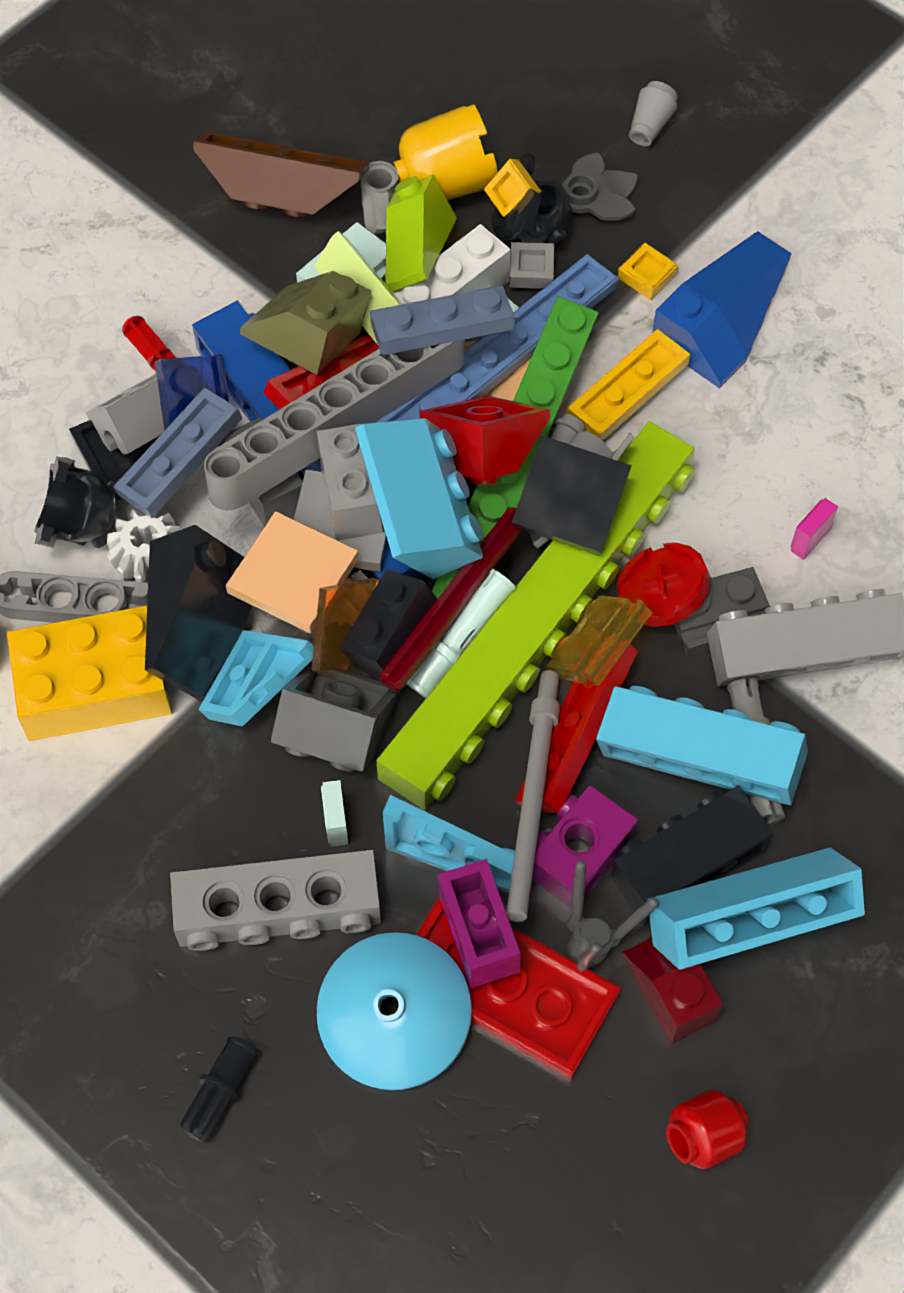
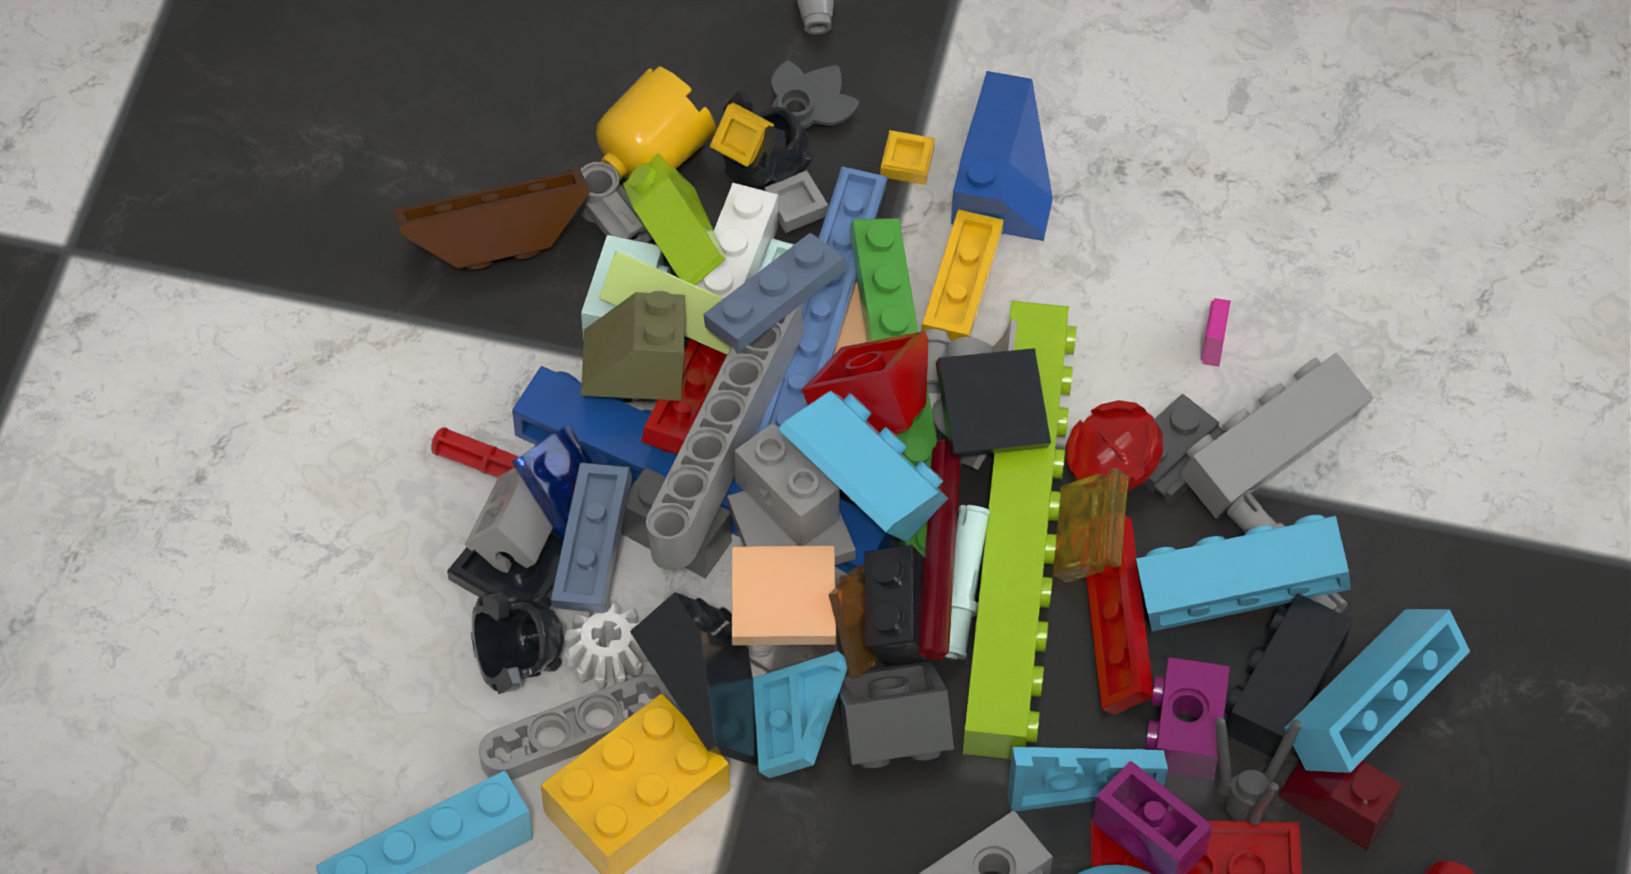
camera: 30 degrees left, 5 degrees down
(334, 813) = (951, 800): light aqua tile -> none
(543, 717) = (1083, 622): light grey bar -> none

